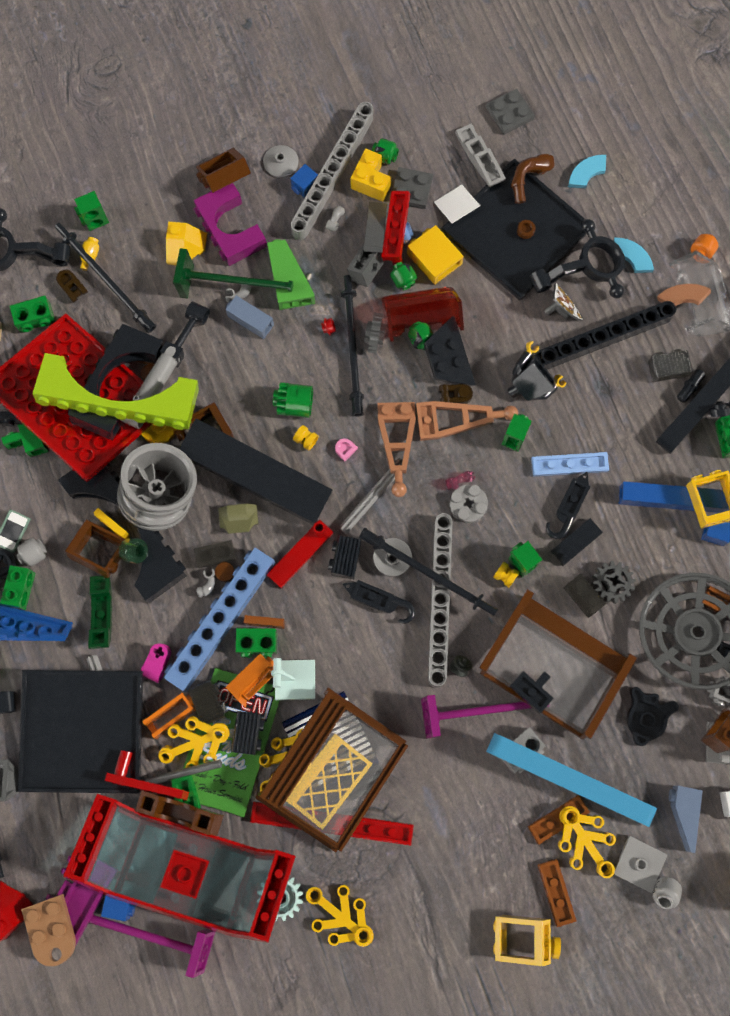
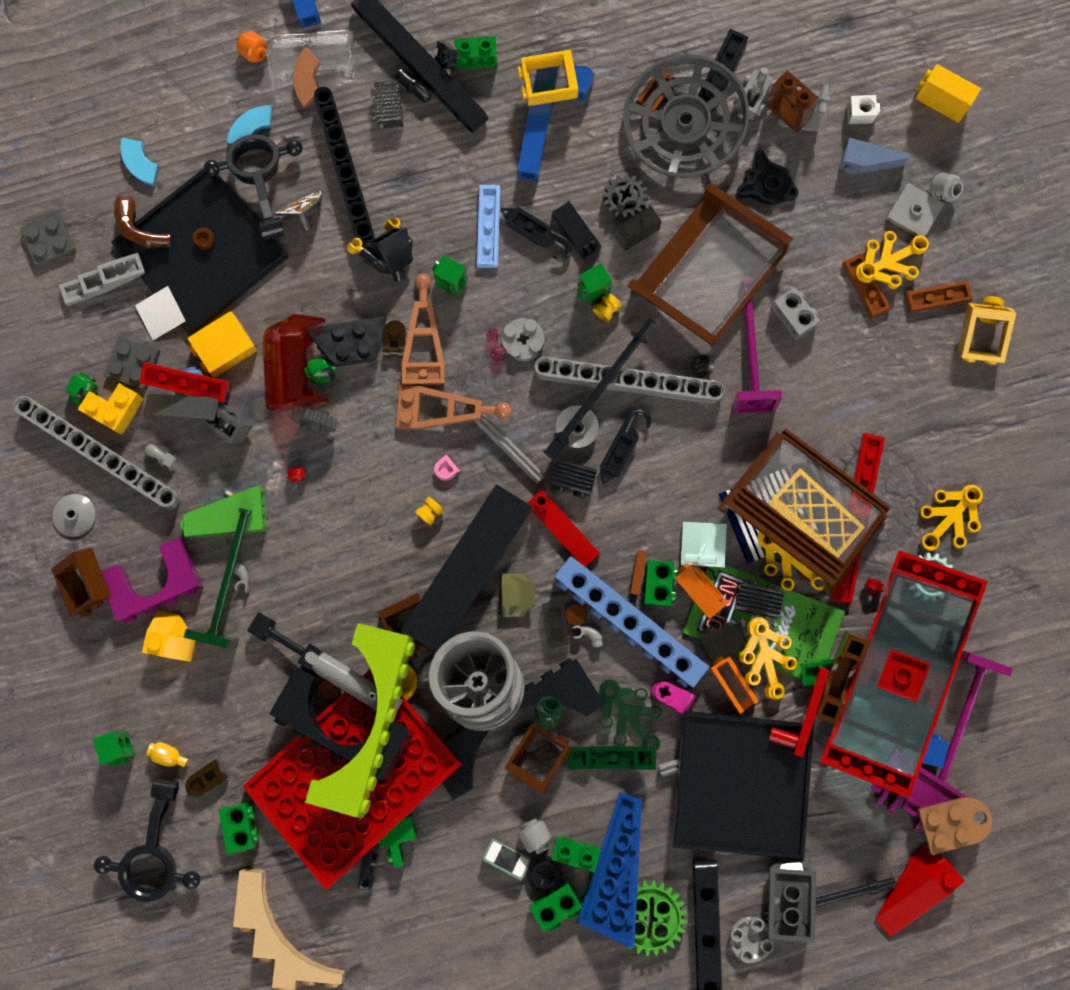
camera: 85 degrees left, 5 degrees up
(106, 520) = (510, 741): yellow tile -> none
(139, 315) = (254, 697): black bar -> none
(140, 623) = (627, 712): none -> clear green plant
(185, 772) = (796, 671): dark grey bar -> none
(249, 316) = (273, 565): sand blue brick -> none
(268, 842) = (874, 586): none -> red plate
(293, 400) = (384, 520): green gear -> none
(303, 180) = (107, 487): blue brick -> none
(356, 396) = (385, 450): black bar -> none
(403, 276) = (244, 382): green head -> none
(532, 691) = (737, 292): black plate -> none
(571, 779) = (830, 266): dark azure beam -> none

